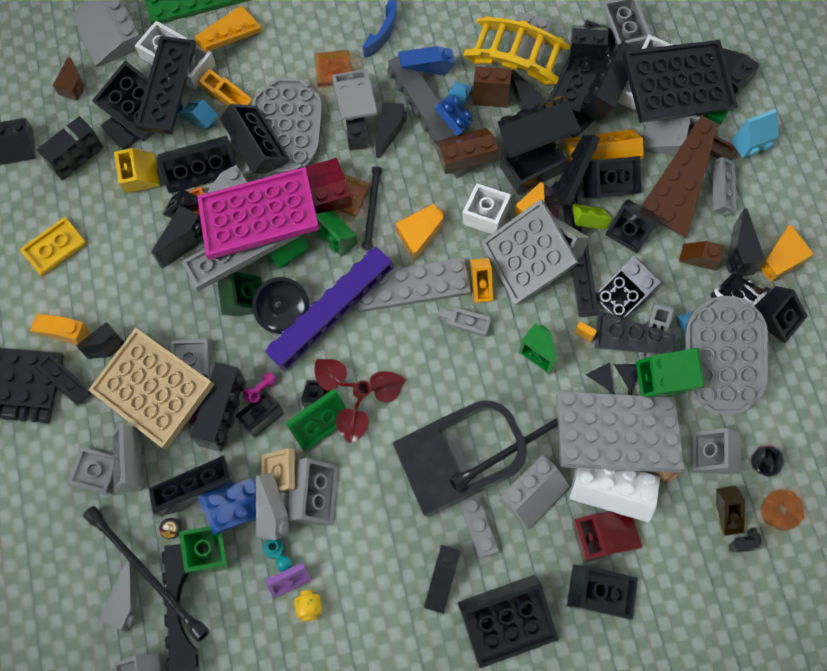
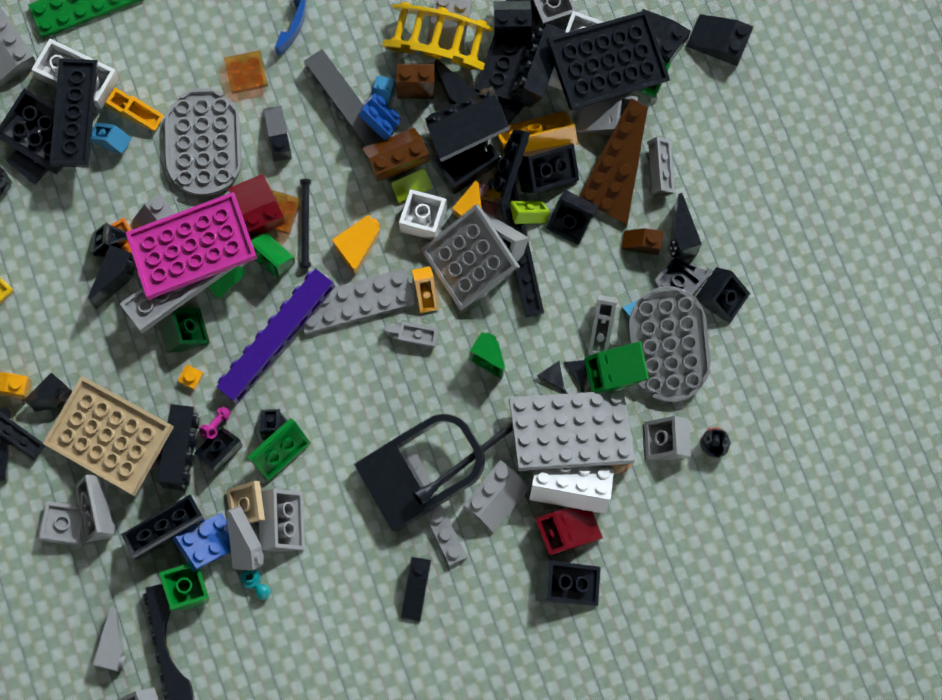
camera: 15 degrees left, 5 degrees up
(136, 170) = (54, 207): yellow slope -> none
(170, 528) = (146, 571): tile -> none
(193, 353) = (143, 394): light grey plate -> none
(195, 163) = (116, 193): black slope -> none
(196, 628) = (189, 660): black hose -> none
(228, 29) = (128, 39): light orange wing -> none
(242, 341) = (190, 377): none -> light orange plate
(254, 138) = (174, 161): black slope -> none
(288, 580) = (268, 606): medium lavender plate -> none
(293, 303) = (237, 333): black dish -> none
(308, 606) = (291, 628): yellow head -> none
(354, 95) = (272, 103): light grey slope -> none
(354, 423) = (339, 406): dark red plant -> none
(390, 125) = (314, 129): black slope -> none
(429, 60) = (347, 56): blue slope -> none
(484, 177) = (416, 181): none -> lime slope
(508, 621) = (481, 620): black slope -> none
(585, 331) = (533, 332): light orange tile -> none
(628, 288) = (572, 284): slope -> none
(630, 336) = (571, 332): black wing -> none
(722, 148) = (658, 125): reddish brown tile -> none
(731, 510) = (683, 493): dark brown slope -> none
(741, 544) = (696, 524): black bracket -> none
(757, 134) = (691, 108): medium azure slope -> none
(786, 255) = (726, 233): light orange slope -> none
(787, 499) = (722, 484): clear orange plate -> none
(788, 76) = (720, 38): none -> black slope

